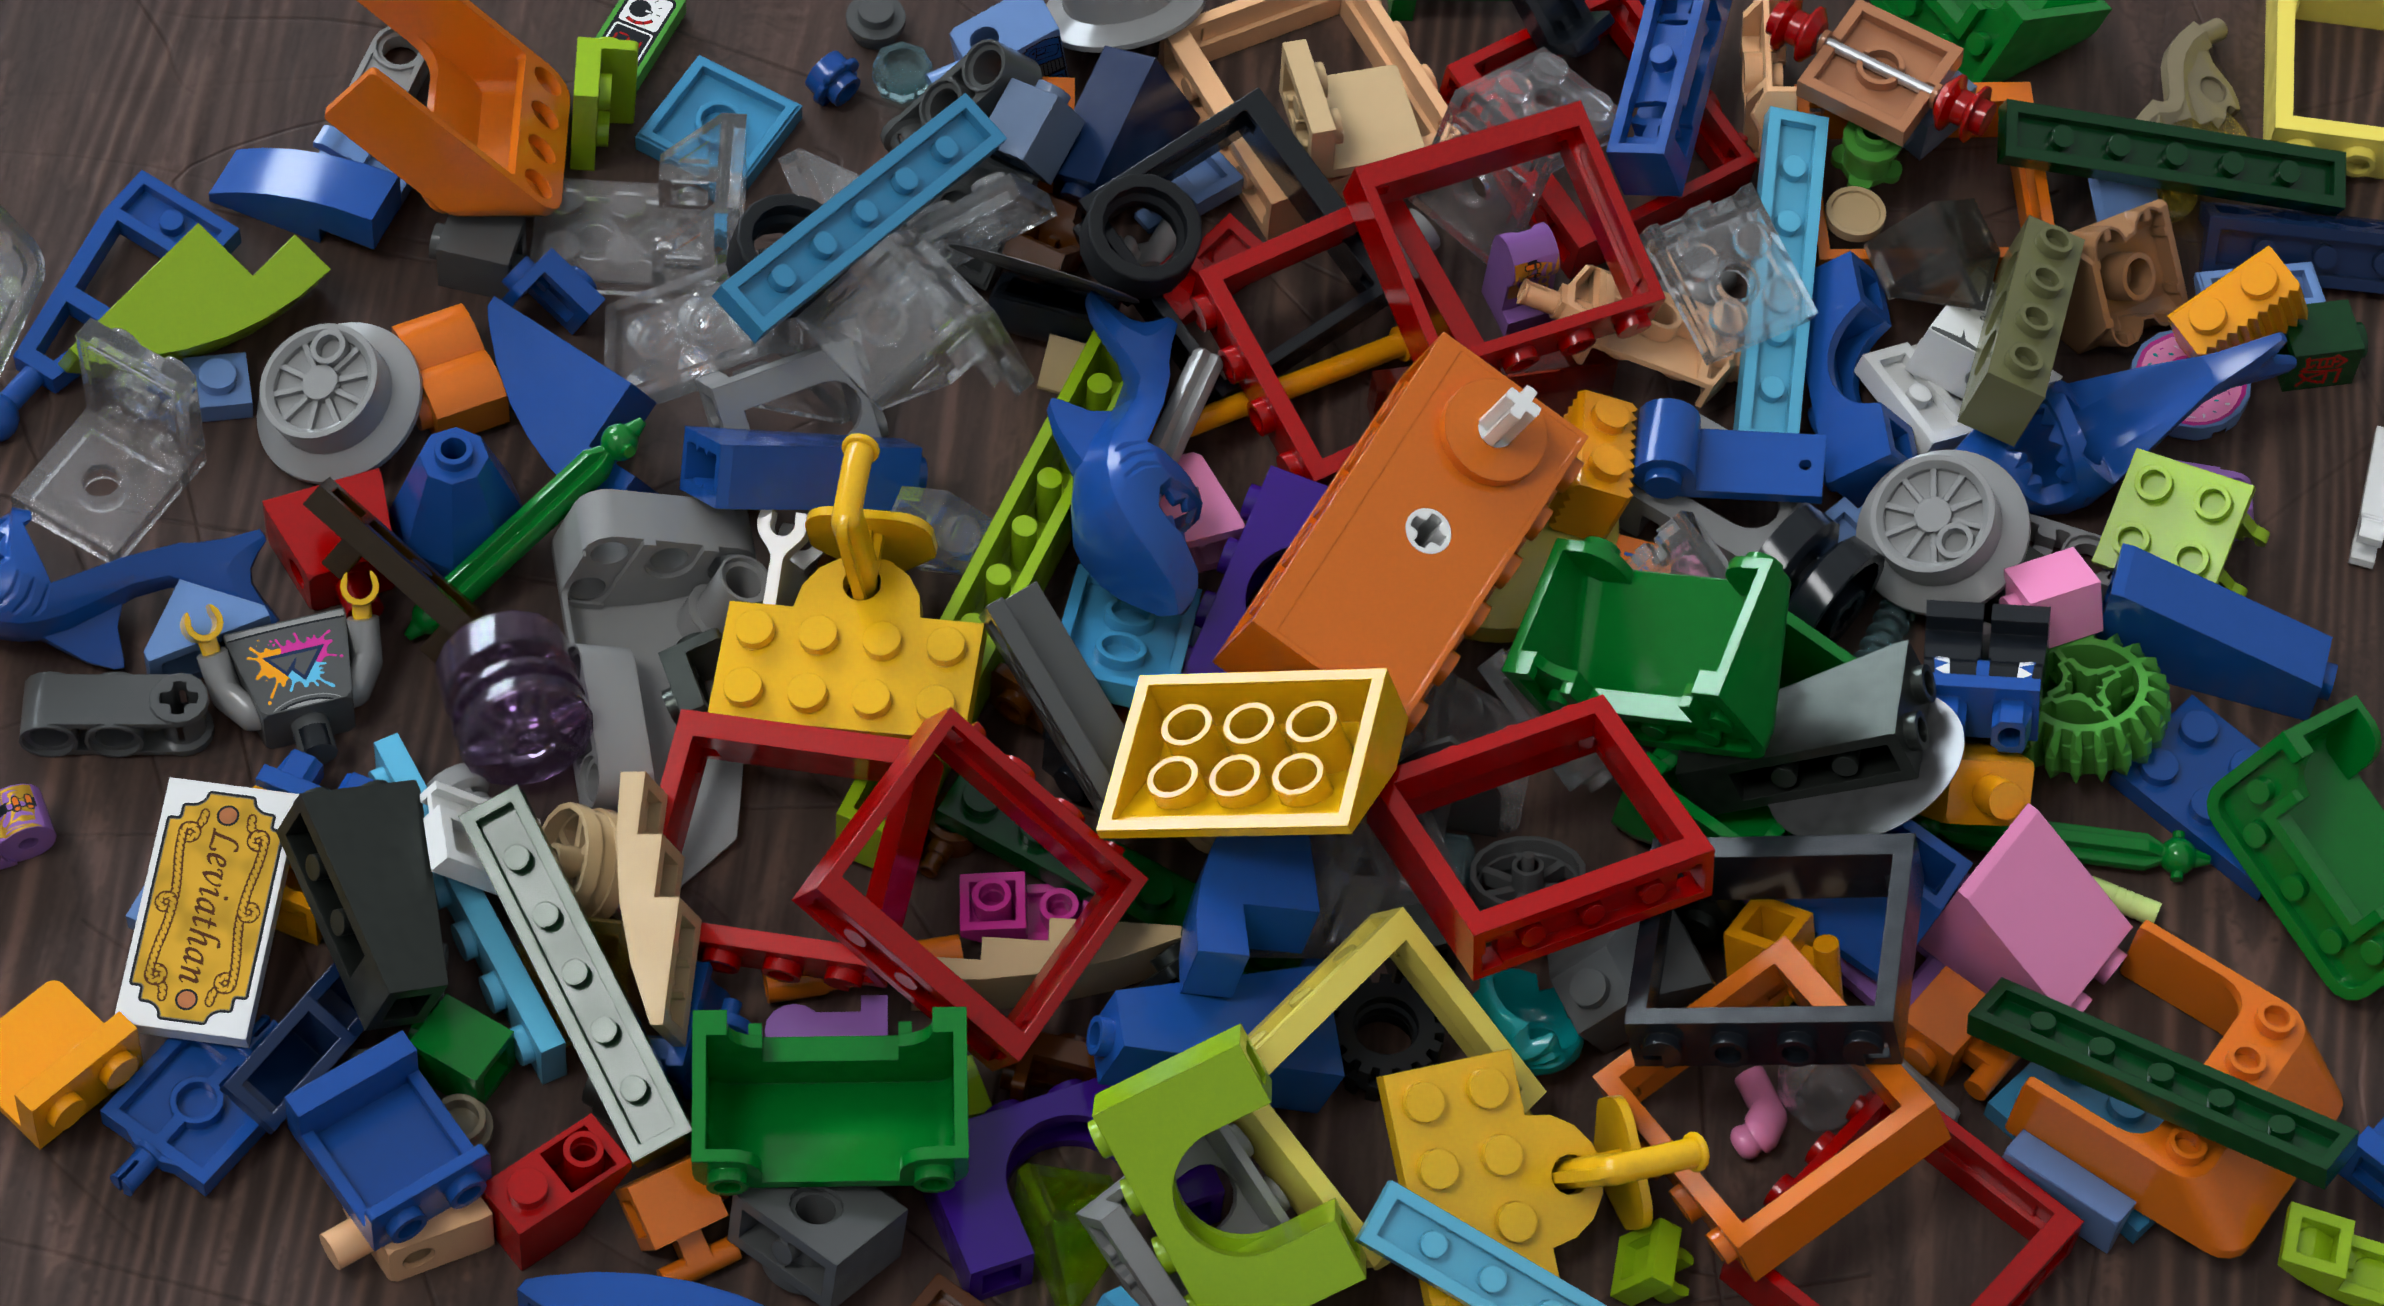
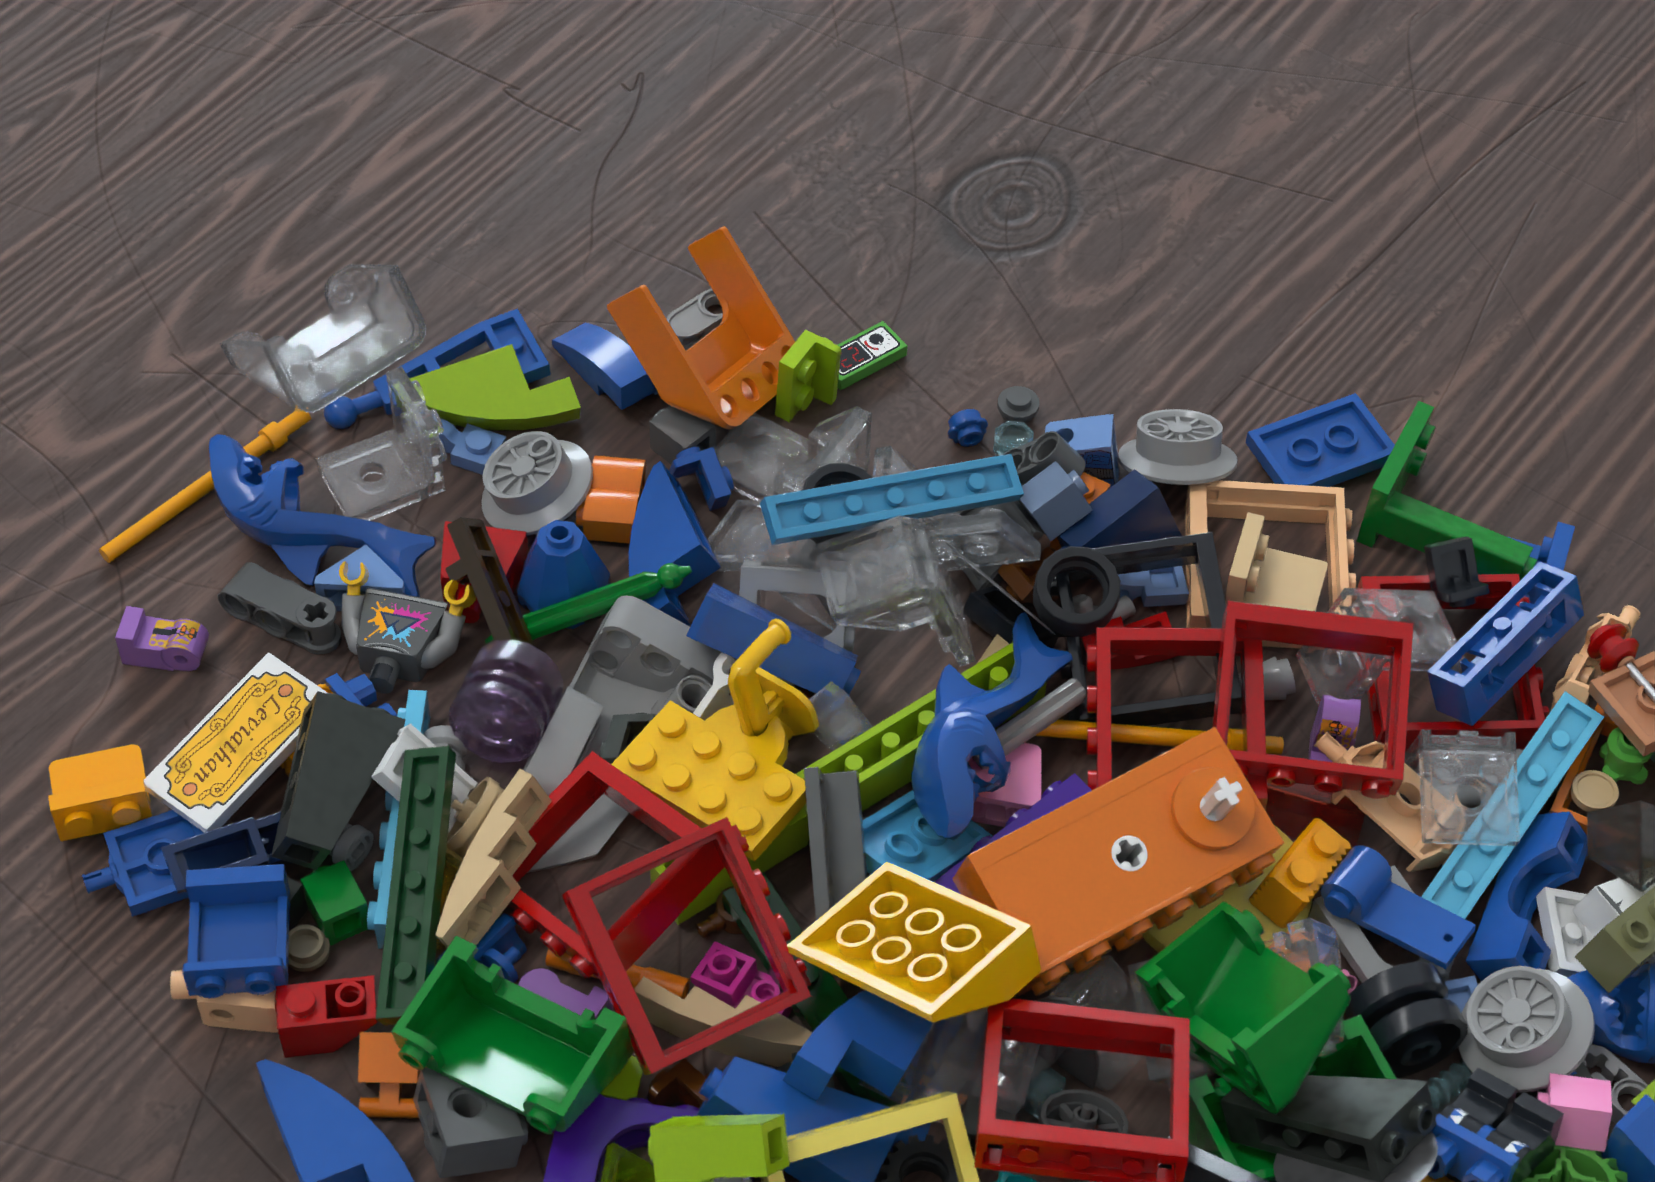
camera: 35 degrees right, 5 degrees down
(712, 90) = (893, 422): dark azure tile -> none

